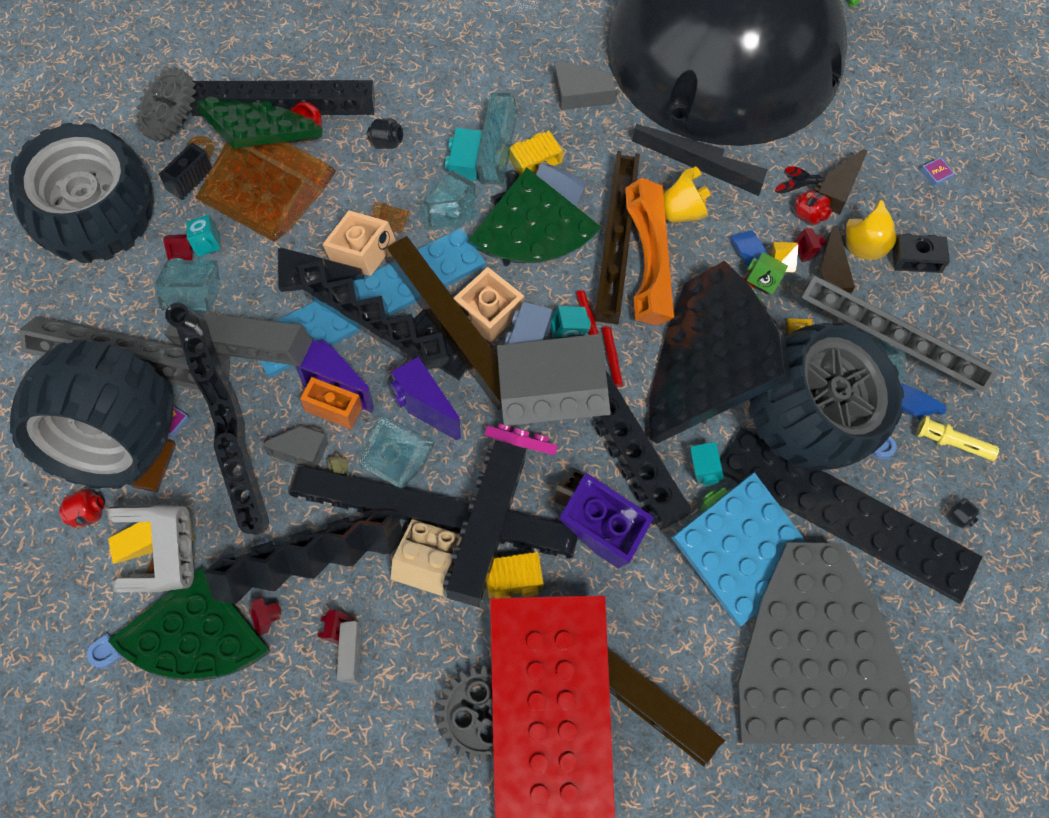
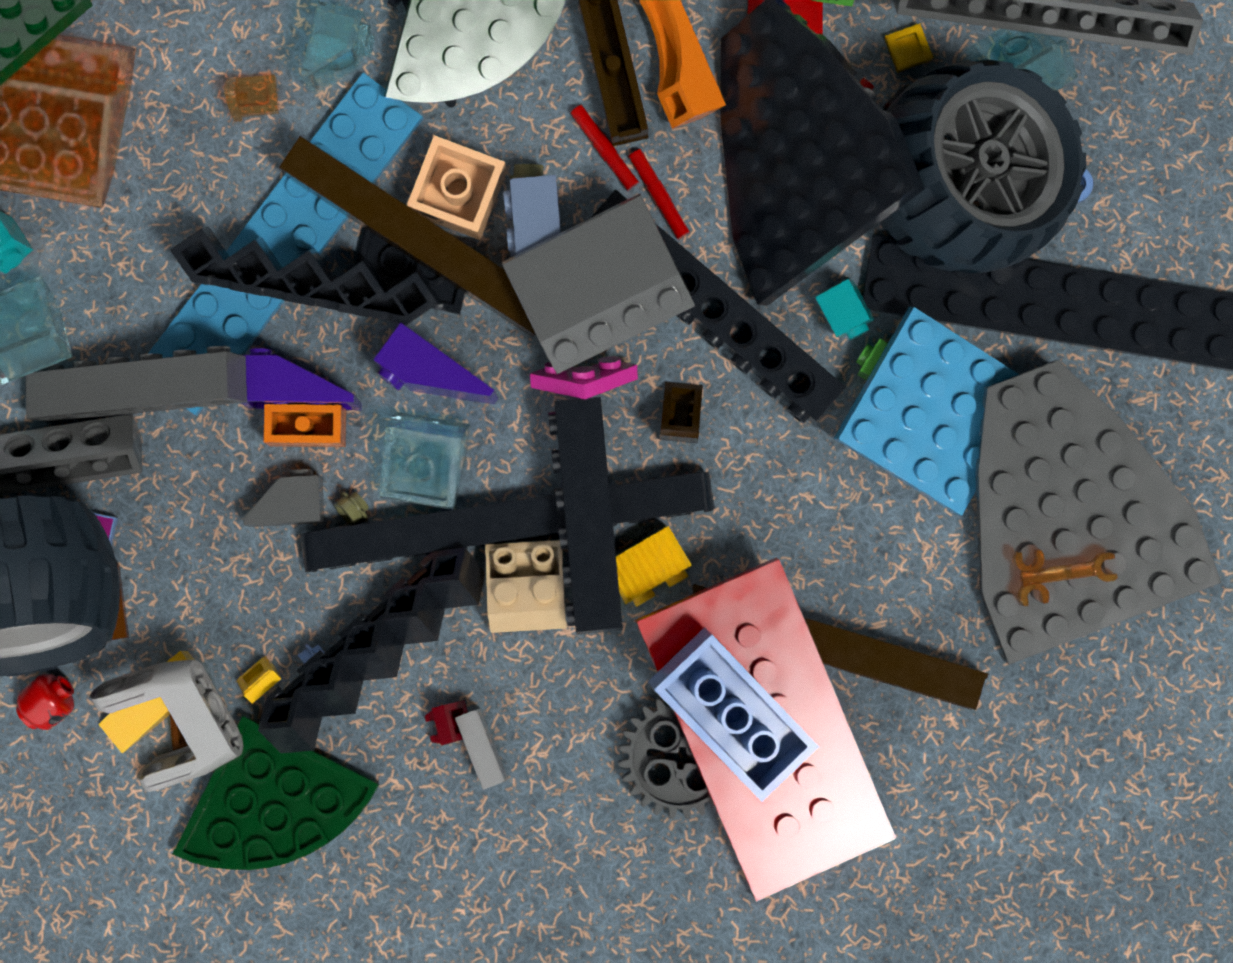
camera: 15 degrees left, 20 degrees up
(101, 653) = (169, 870): medium blue tile -> none
(219, 397) = (182, 515): black beam -> none
(224, 548) = (258, 679): none -> yellow tile
(263, 615) = (351, 745): dark red tile -> none
(289, 274) = (156, 231): black wing -> none
(359, 241) = (231, 164): light nougat brick -> none
(532, 687) = (733, 714): none -> medium blue brick
(569, 322) = (582, 171): teal brick -> none
(605, 521) = (741, 451): dark purple slope -> none
(780, 684) = (1033, 575): none -> clear orange bar
(919, 403) = (1101, 100): blue slope -> none
(945, 435) = (1154, 135): light yellow pin -> none
(963, 513) = (1207, 244): black piece -> none

